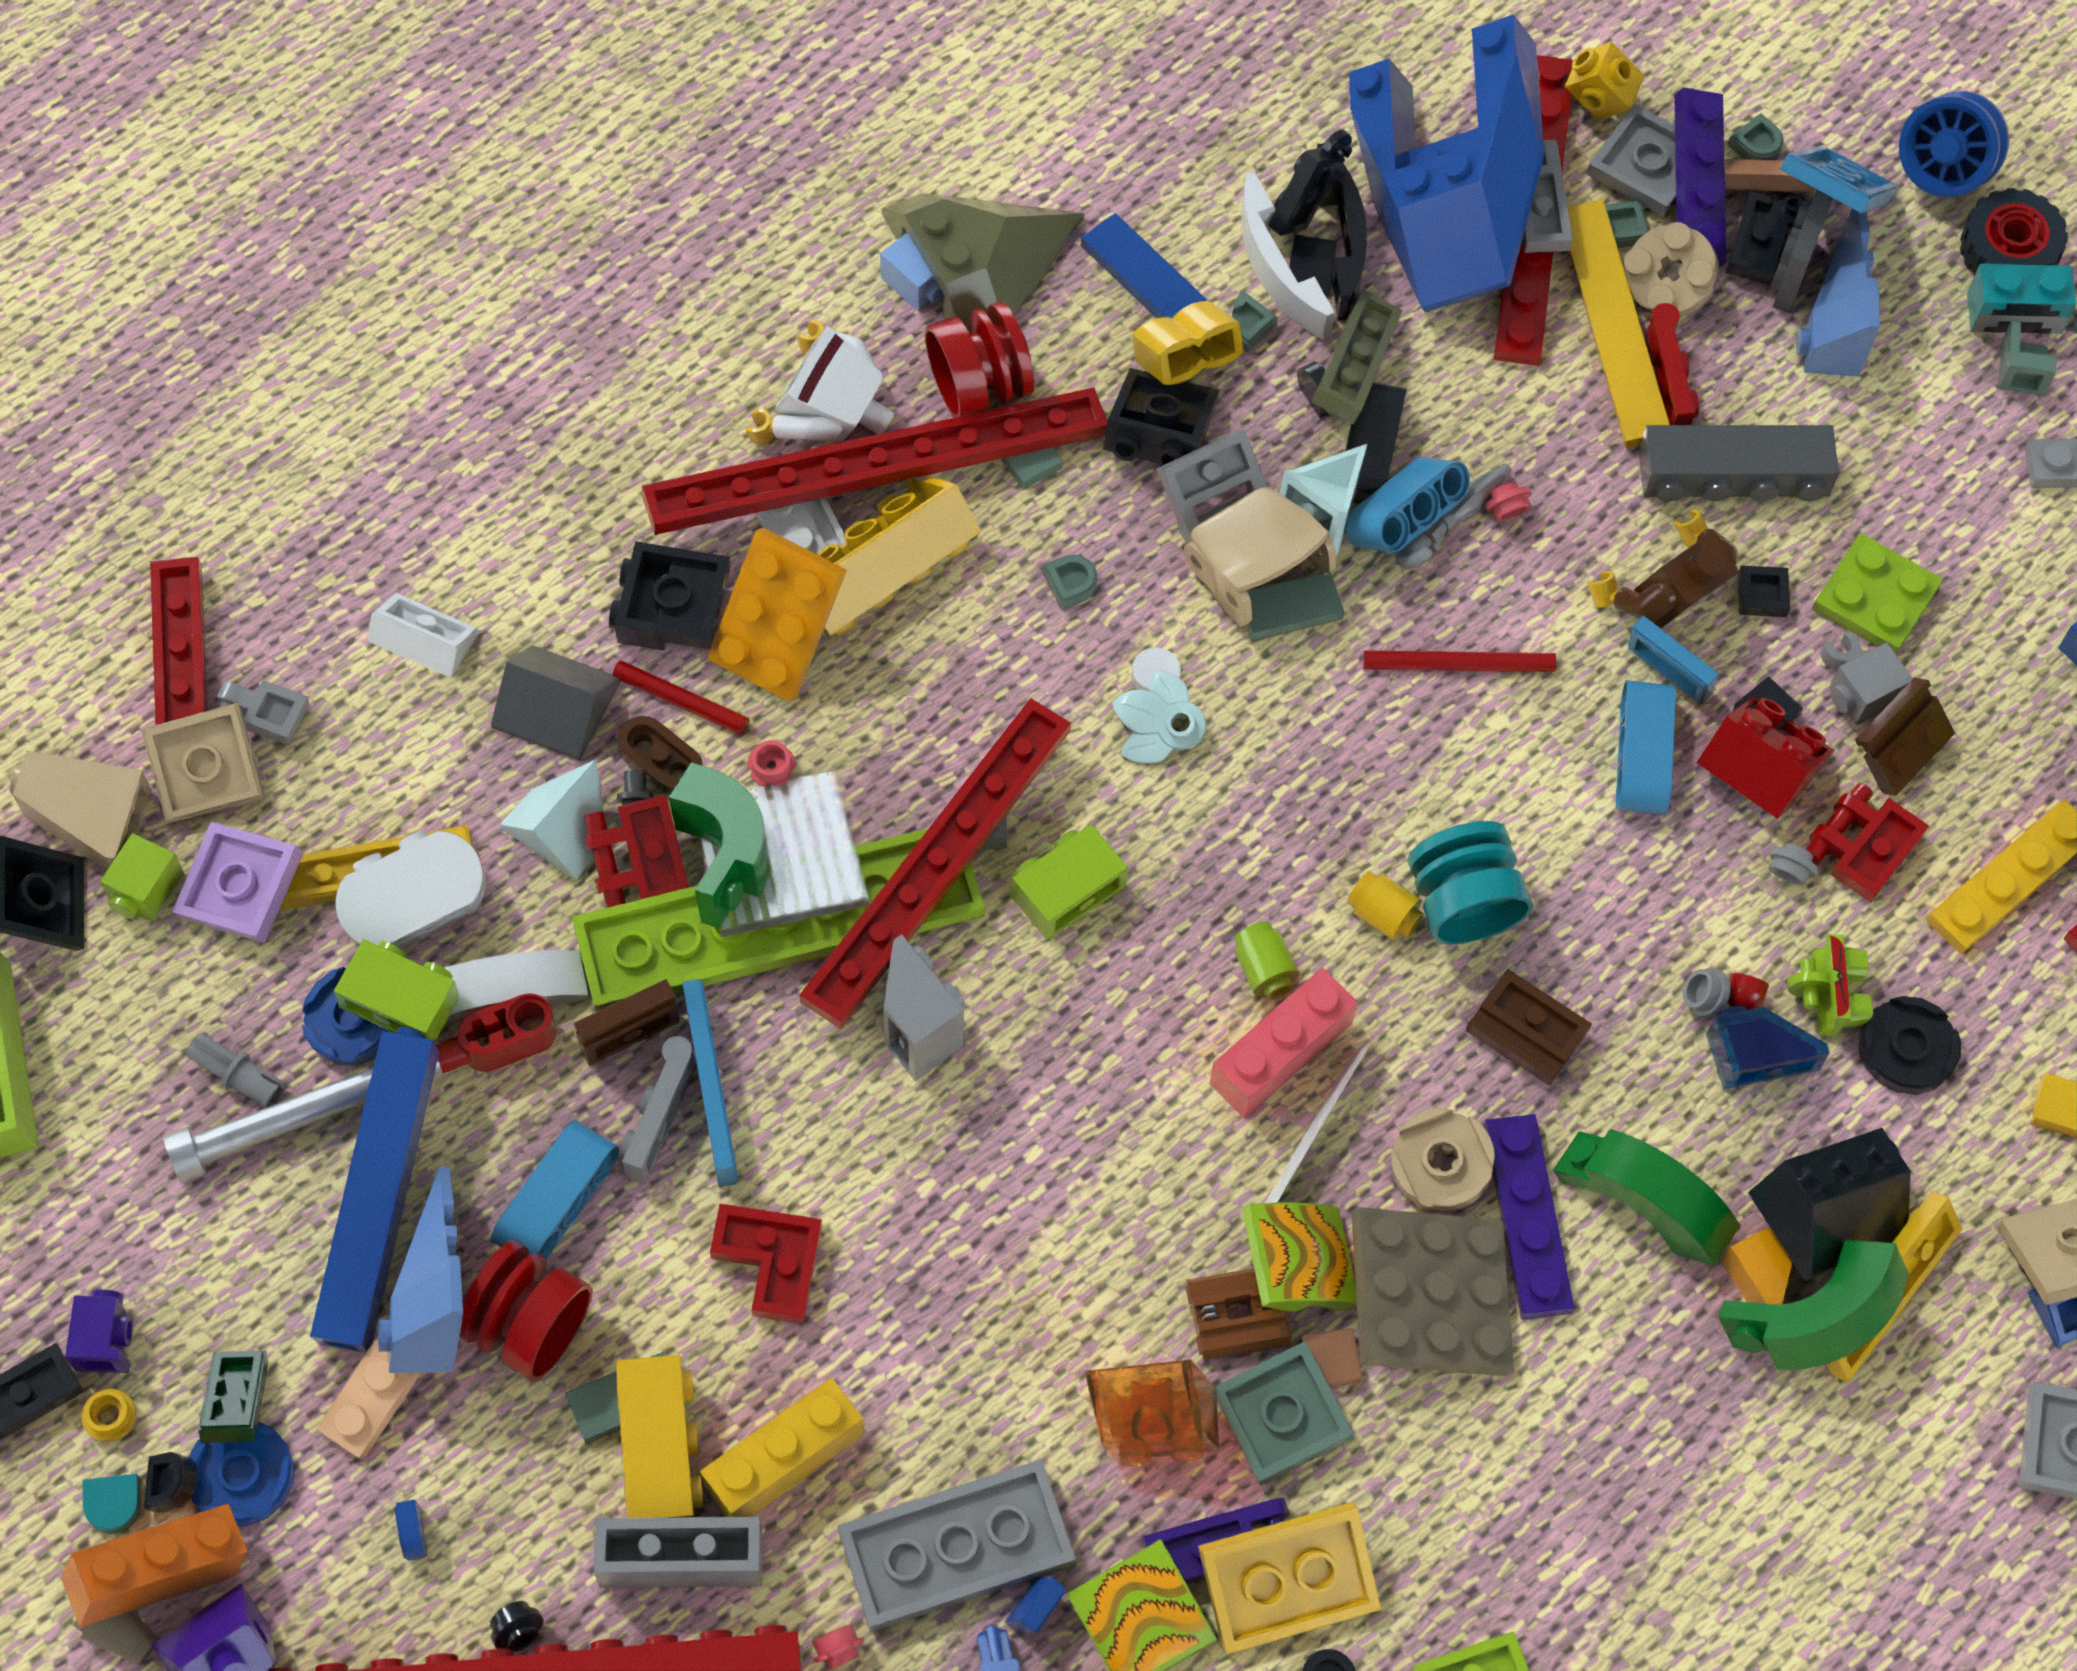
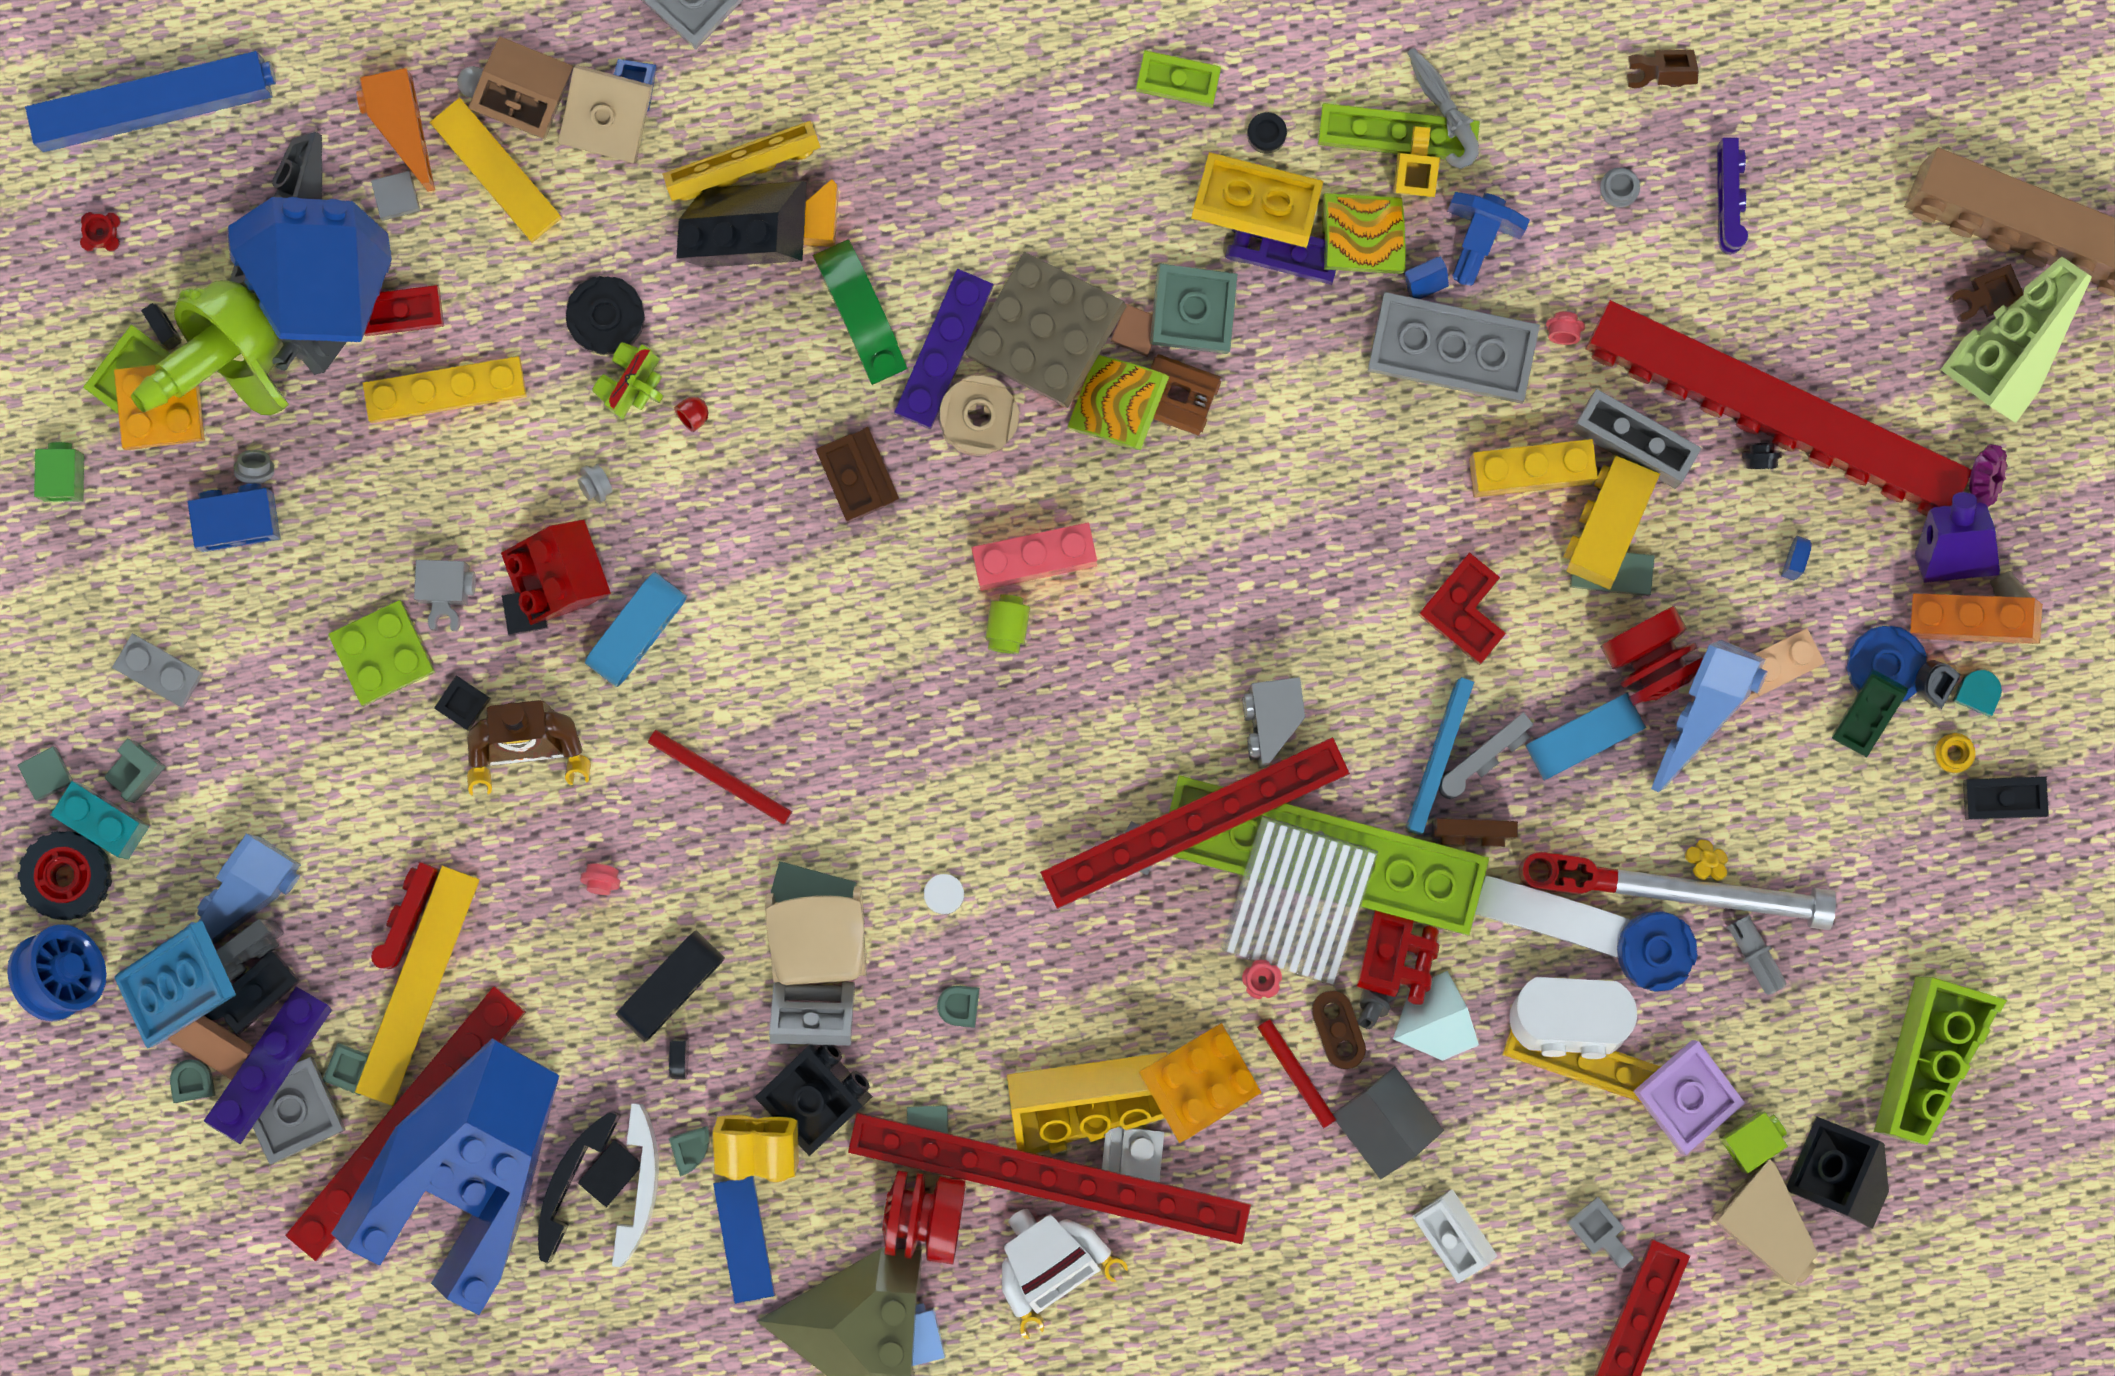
camera: 145 degrees left, 20 degrees up
(98, 1333) = (1936, 811): dark purple brick -> none
(203, 764) = (1668, 1210): tan plate -> none
(338, 1136) = (1707, 861): none -> yellow plant
(375, 1191) = (1707, 801): blue brick -> none
(396, 991) = (1624, 933): lime brick -> none
(669, 597) = (1264, 1152): black plate -> none
(726, 814) = (1322, 946): arch -> none
(1068, 880) = (1108, 763): lime brick -> none
(1152, 719) = (969, 858): light aqua plate -> none
(1155, 1411) = (1280, 348): clear orange slope -> none
(1309, 184) = (574, 1228): black hinge -> none
(1316, 1126) = (1049, 488): white sticker -> none
(1327, 489) = (740, 953): light aqua slope -> none
(1357, 356) = (639, 1055): olive plate -> none
(1386, 905) = (898, 616): yellow brick -> none
(1407, 504) = (681, 912): dark azure beam -> none
(1470, 882) = (835, 590): teal wheel -> none
(1477, 496) = (673, 888): light grey piece -> none
(1548, 219) = (414, 1087): light grey plate -> none
(1604, 80) = (280, 1195): yellow brick -> none
(1672, 660) = (571, 682): dark azure tile -> none
(1674, 244) = (329, 1012): tan plate -> none
(1706, 992) = (719, 427): light grey plate -> none
(1738, 461) = (410, 811): dark grey brick -> none
(1761, 1047) = (713, 368): clear blue slope -> none
(1830, 1322) = (803, 145): green arch -> none
(1879, 848) = (526, 460): red plate -> none
(1905, 736) = (449, 527): reddish brown plate -> none

